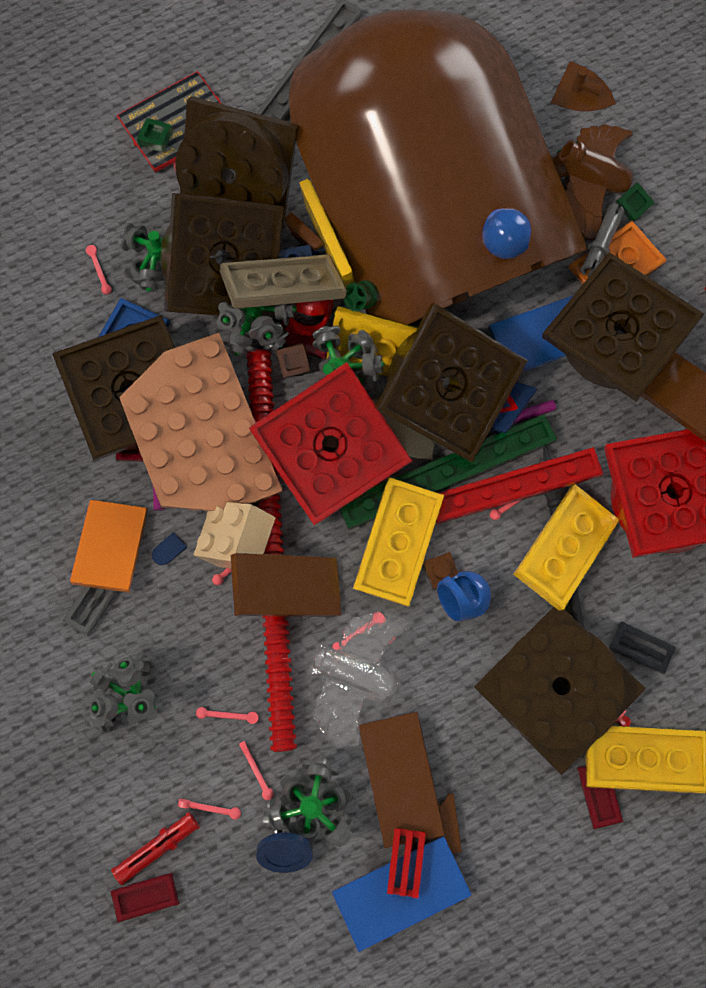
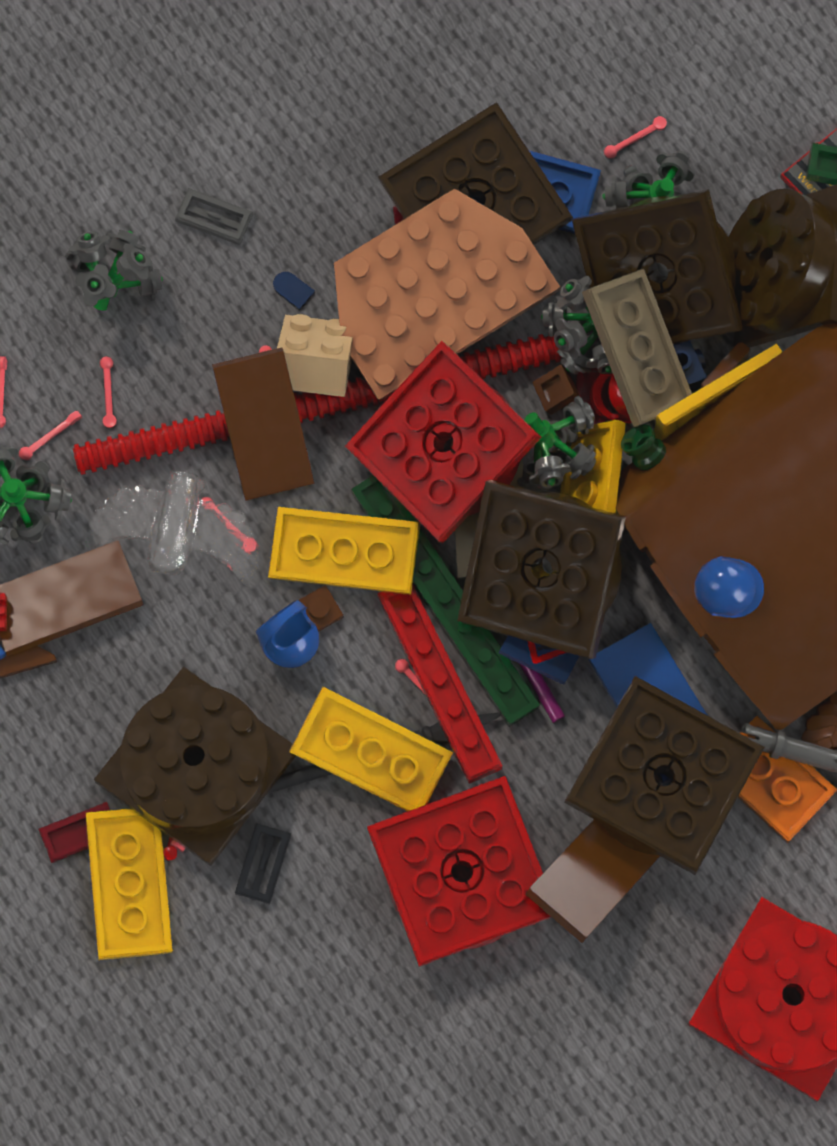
camera: 80 degrees right, 0 degrees up
(109, 546) = (284, 221): orange tile -> none

